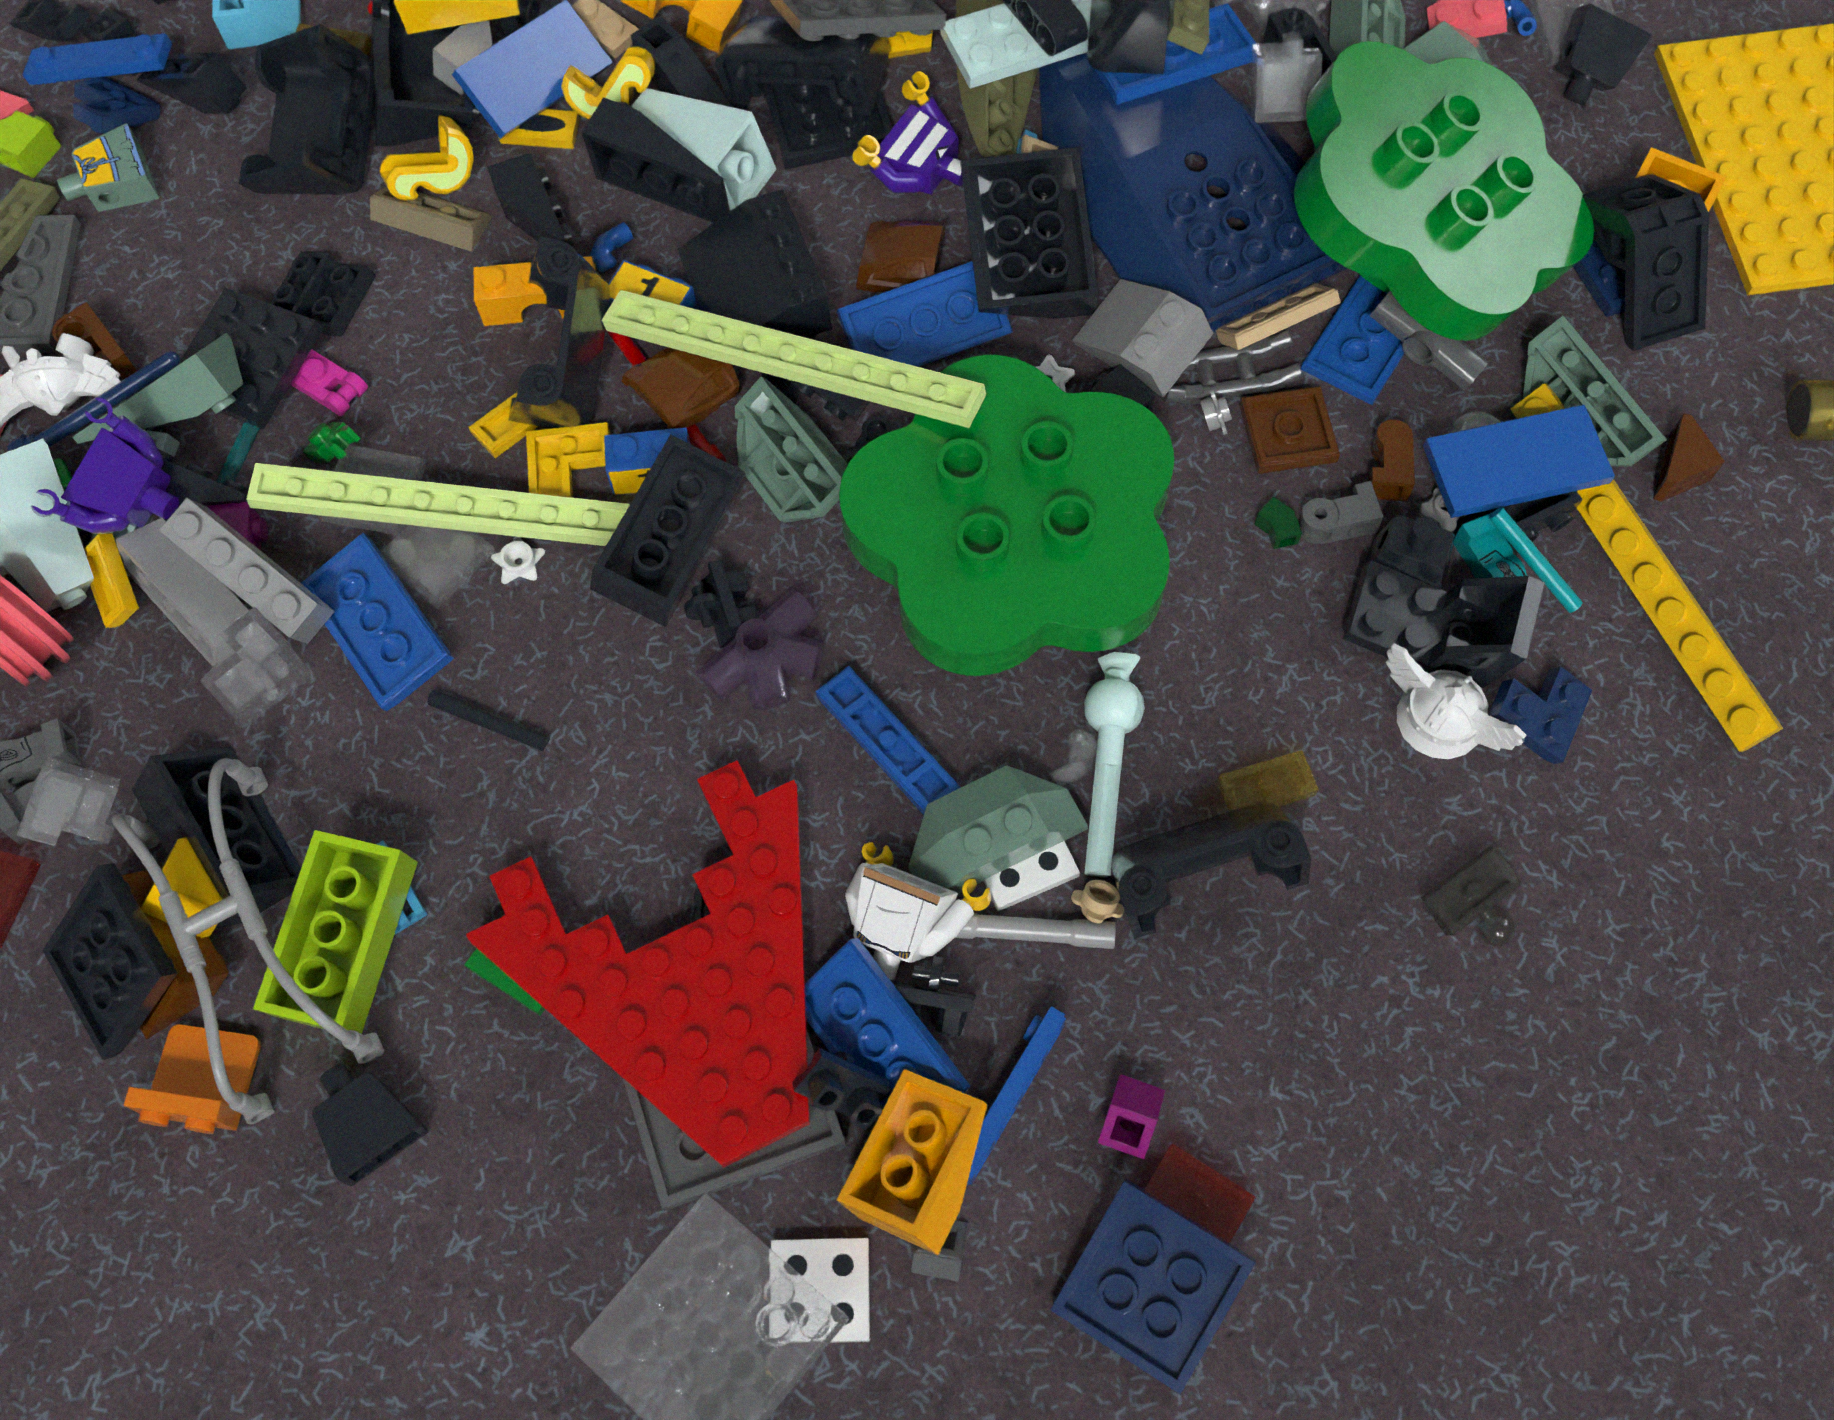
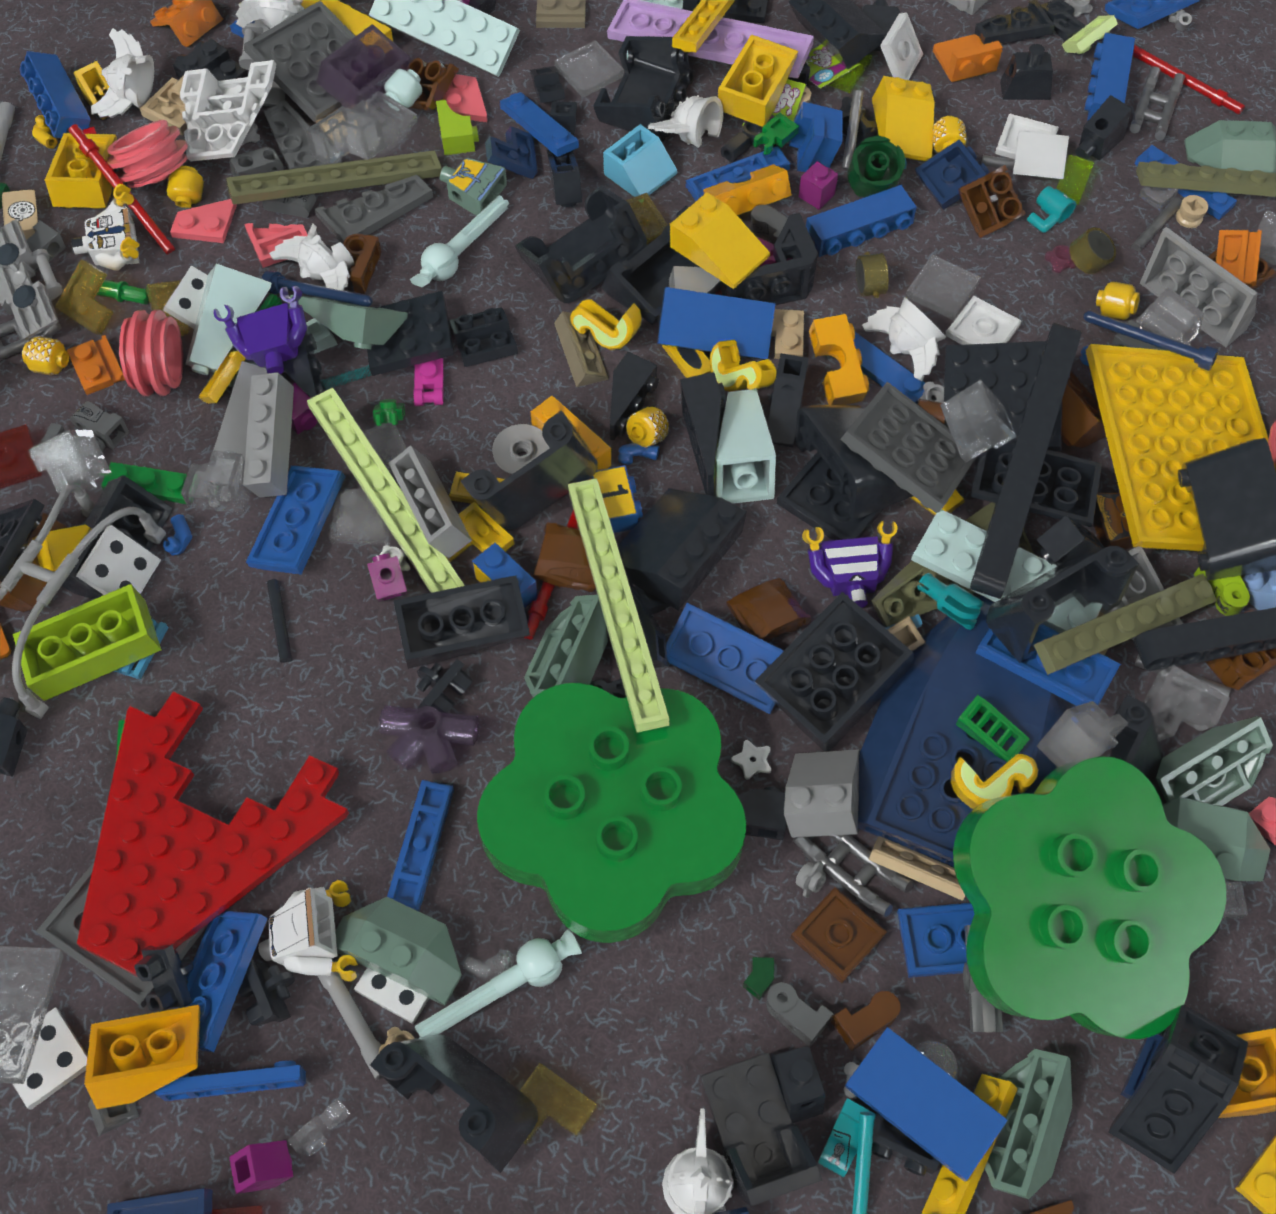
camera: 50 degrees right, 5 degrees down
(178, 263) = (441, 260): none -> light aqua piece
(196, 729) = (160, 483): none -> green plate
(266, 840) = (117, 563): none -> white tile
(281, 757) = (182, 537): none -> blue arm
(491, 466) = (429, 502): none -> light grey brick
(499, 333) = (515, 440): none -> light grey dish
(542, 572) = (386, 577): none -> magenta brick
(593, 213) = (647, 426): none -> yellow head
(1048, 83) = (952, 600): none -> teal arm
(1132, 1047) = (312, 1135): none -> clear plate
(1191, 157) = (1000, 721): none -> green slope
(1274, 183) = (971, 790): none -> animal

